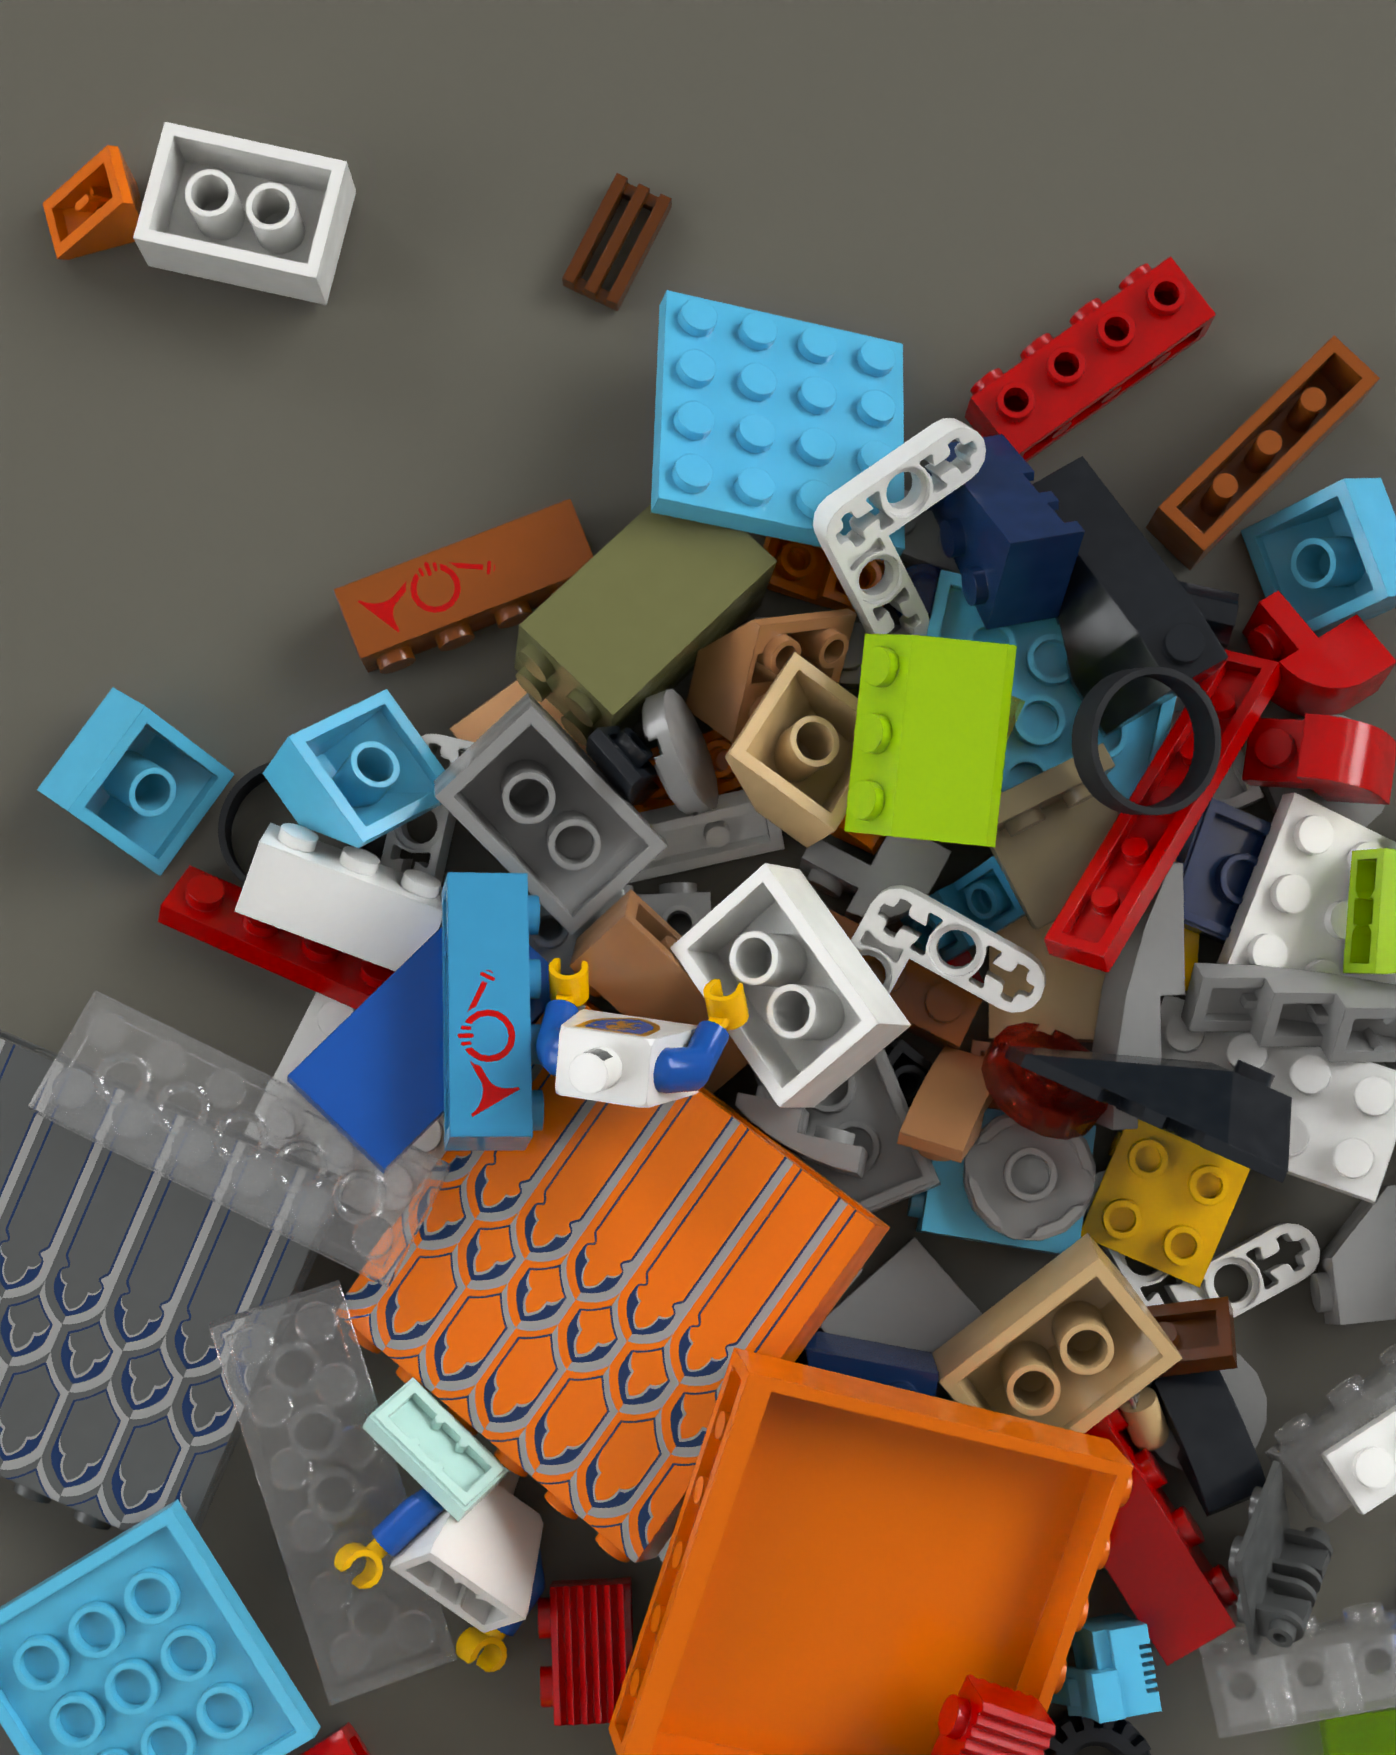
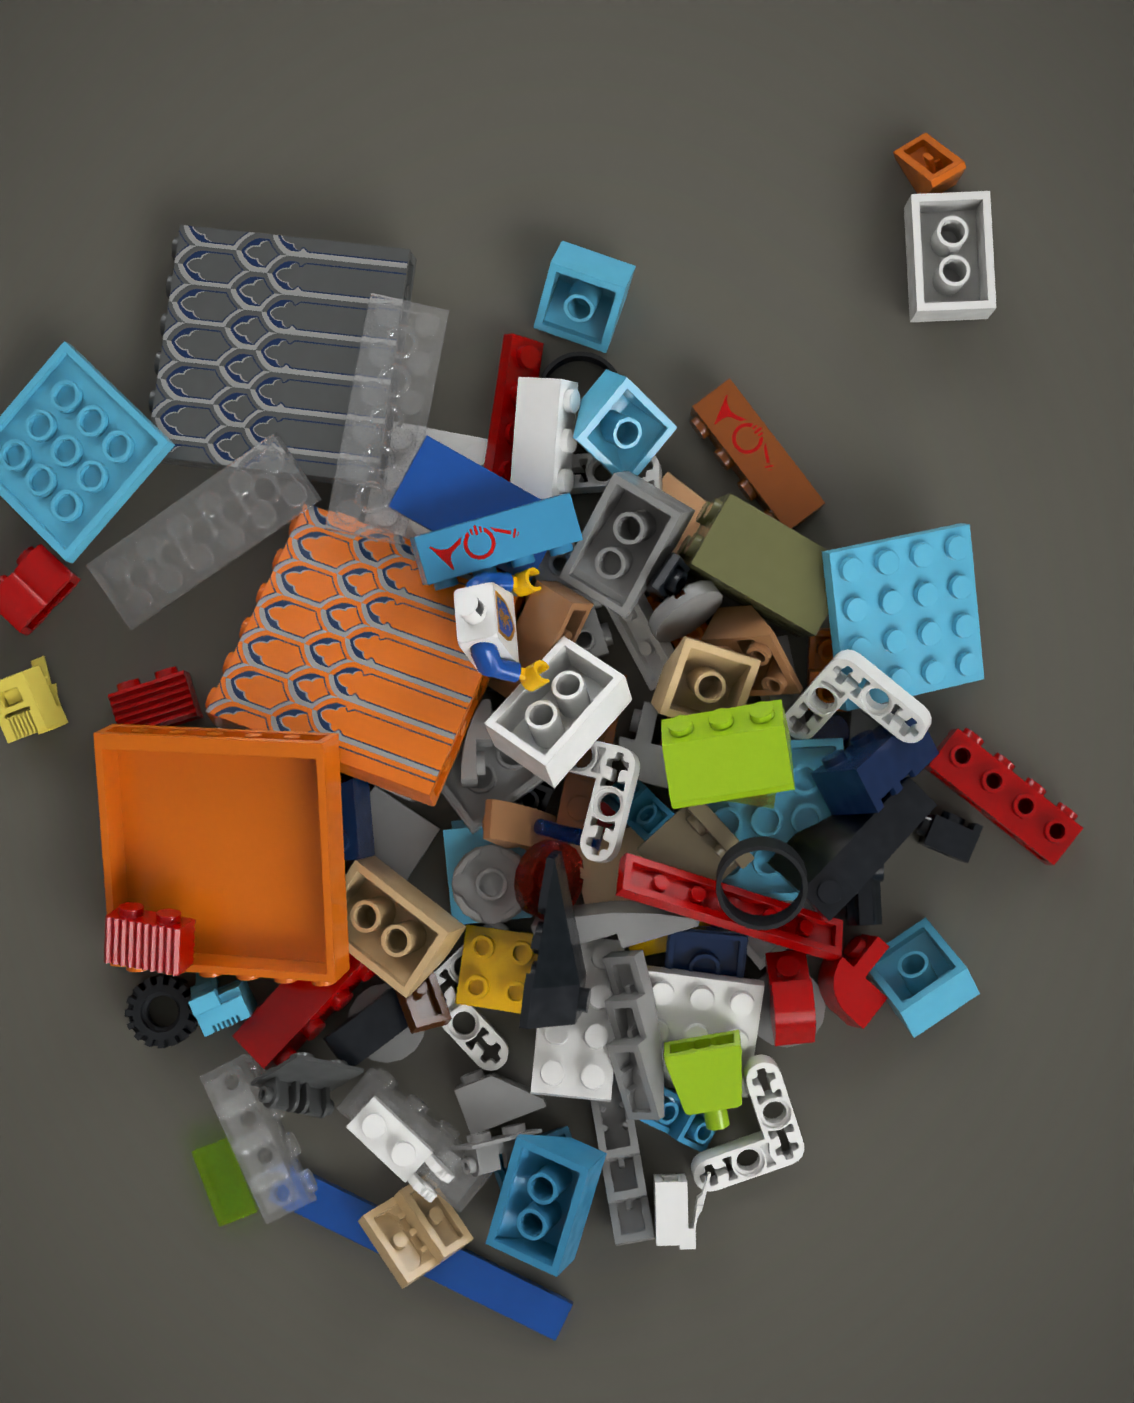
camera: 80 degrees right, 5 degrees up
(435, 1449) = (241, 582): light aqua plate -> none
(476, 1567) = (191, 617): white torso -> none
(638, 198) = (1004, 472): reddish brown tile -> none
(977, 1039) = (562, 832): none -> clear blue bar
(1133, 455) = (949, 836): none -> black brick
(1145, 1420) = (369, 989): tan piece -> none
(1262, 452) = (974, 916): dark orange brick -> none

